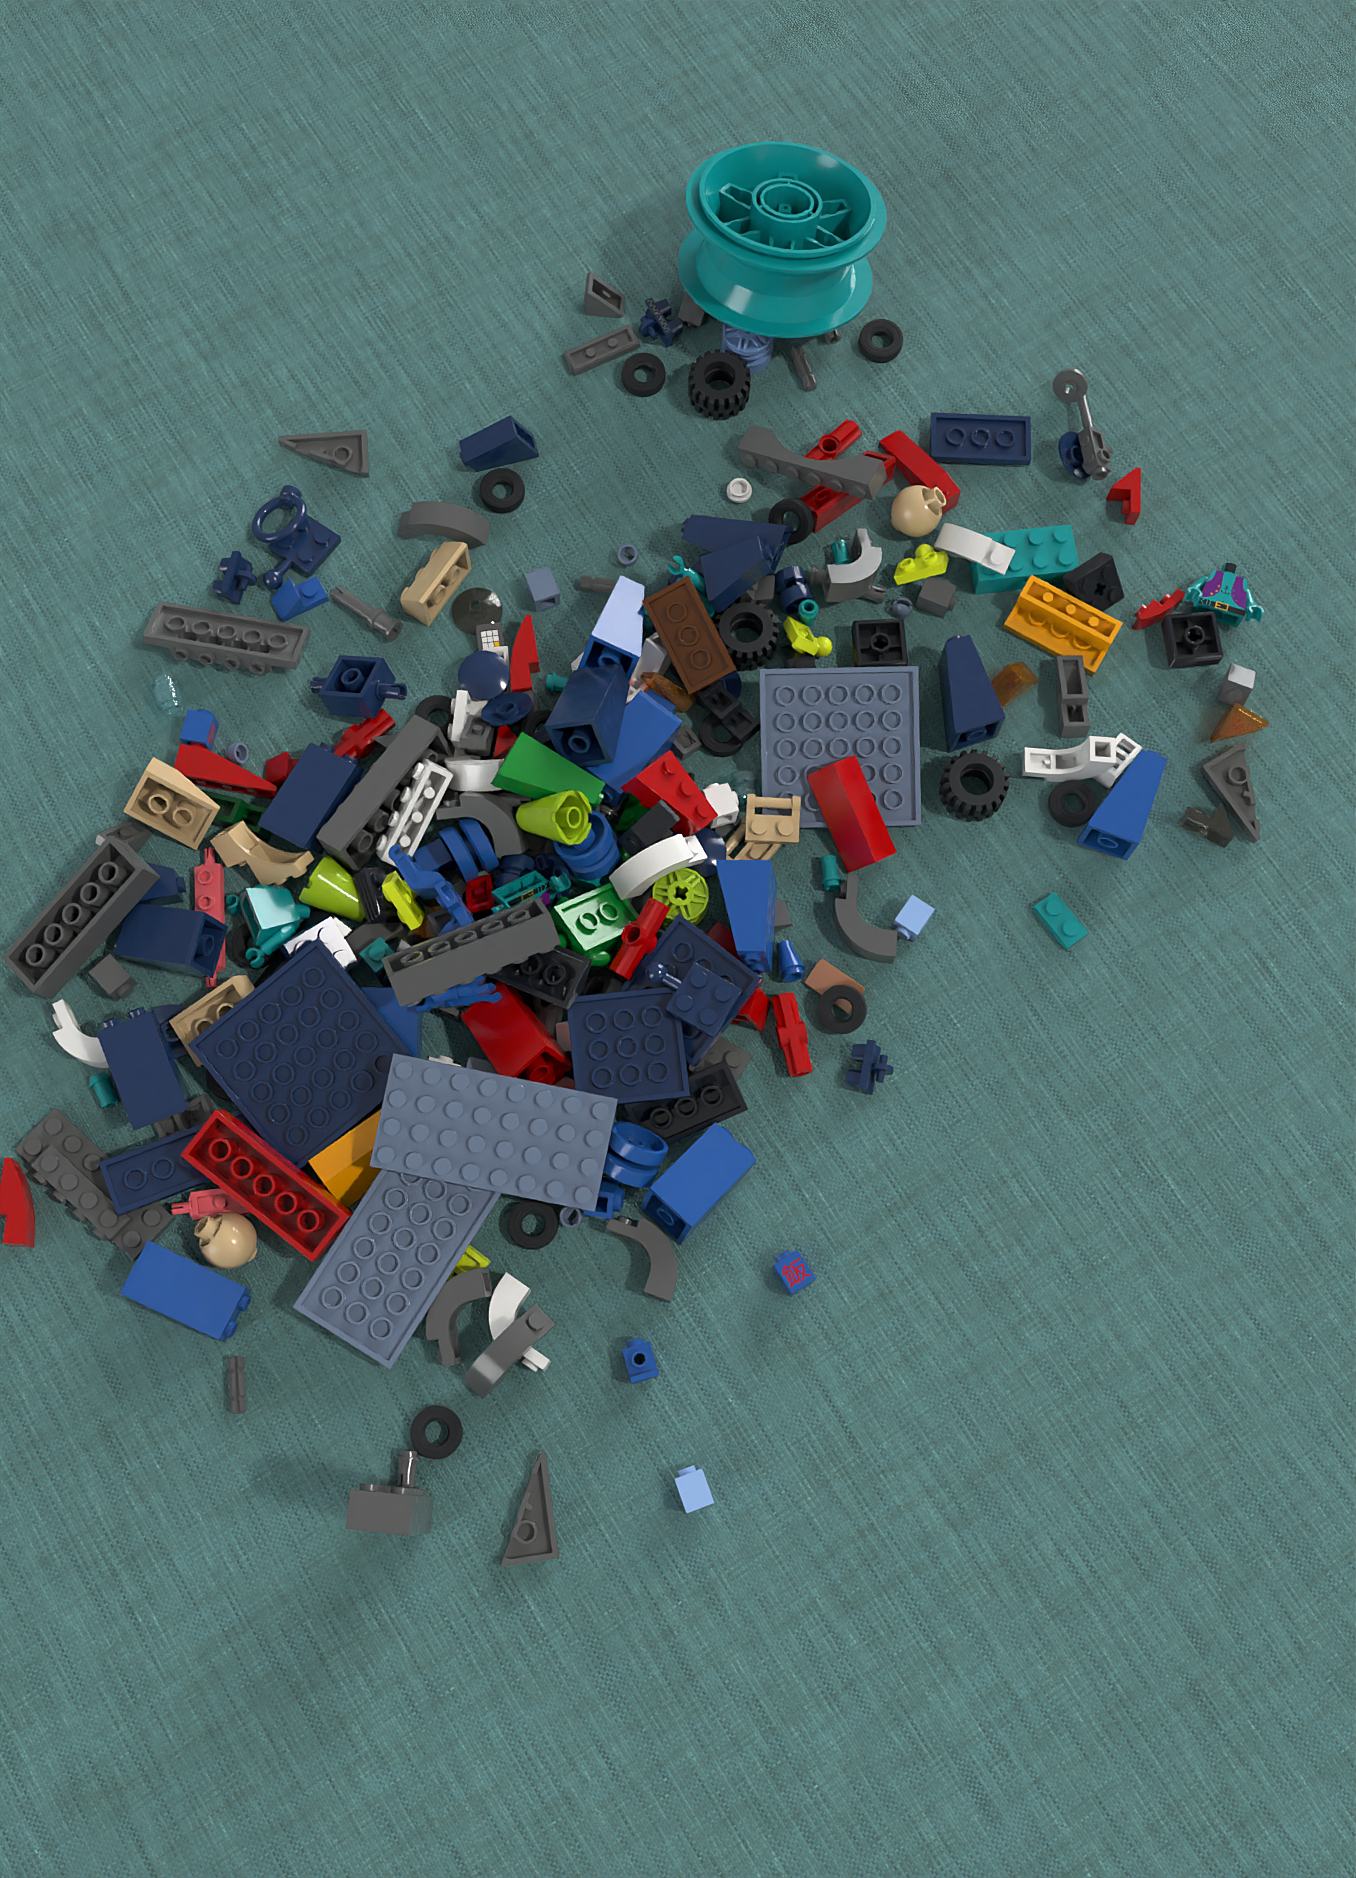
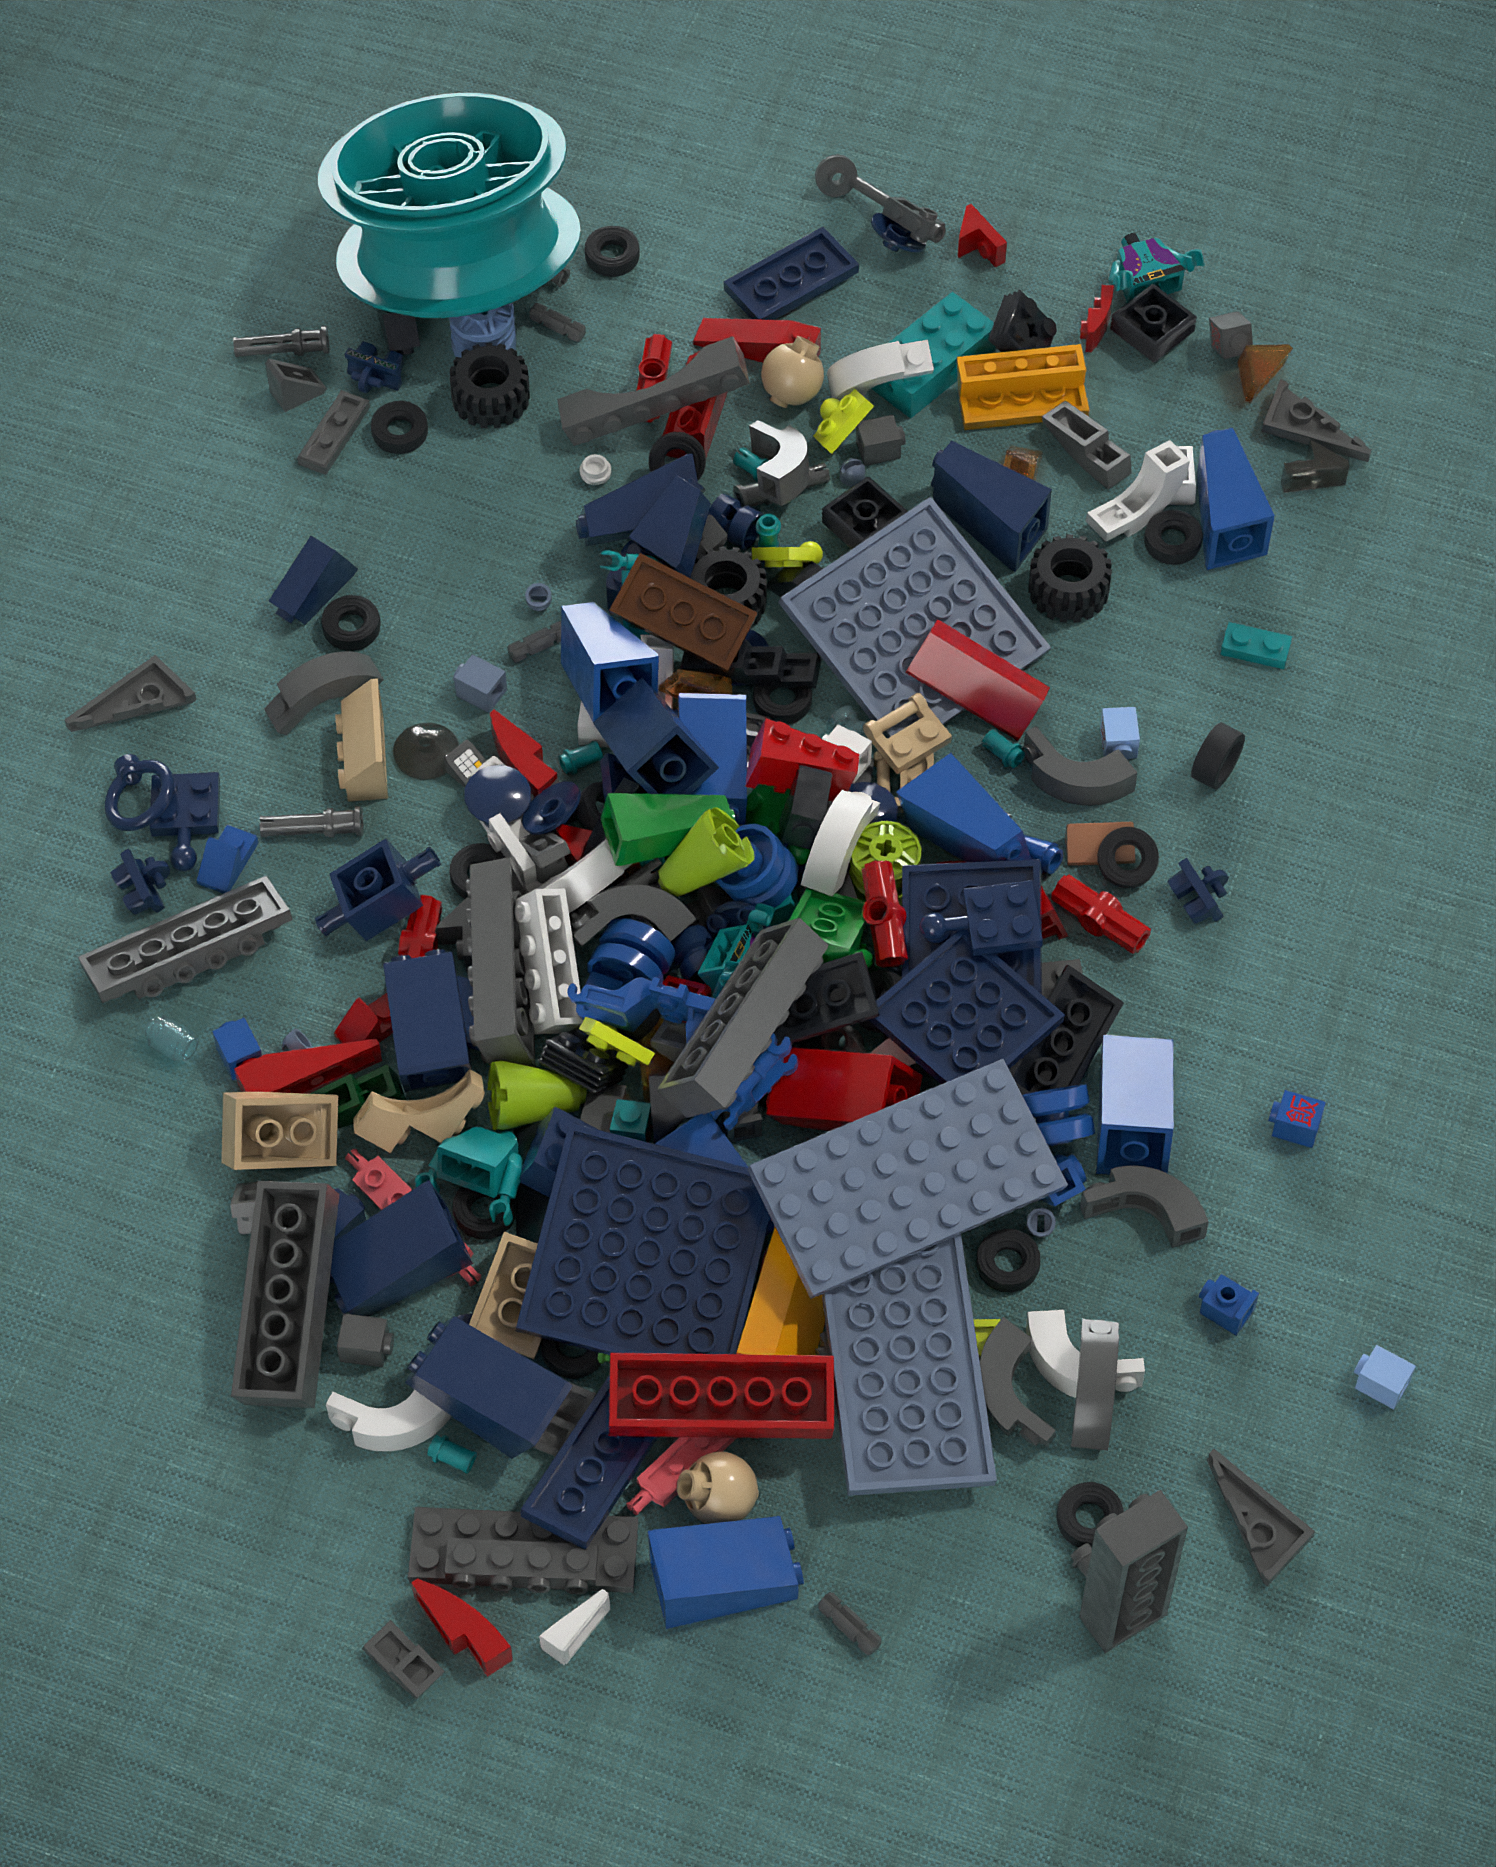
camera: 35 degrees left, 15 degrees down
(71, 1260) = (571, 1631): none -> white slope
(630, 270) = (245, 347): none -> dark grey pin
(959, 983) = (1218, 755): none -> black tyre

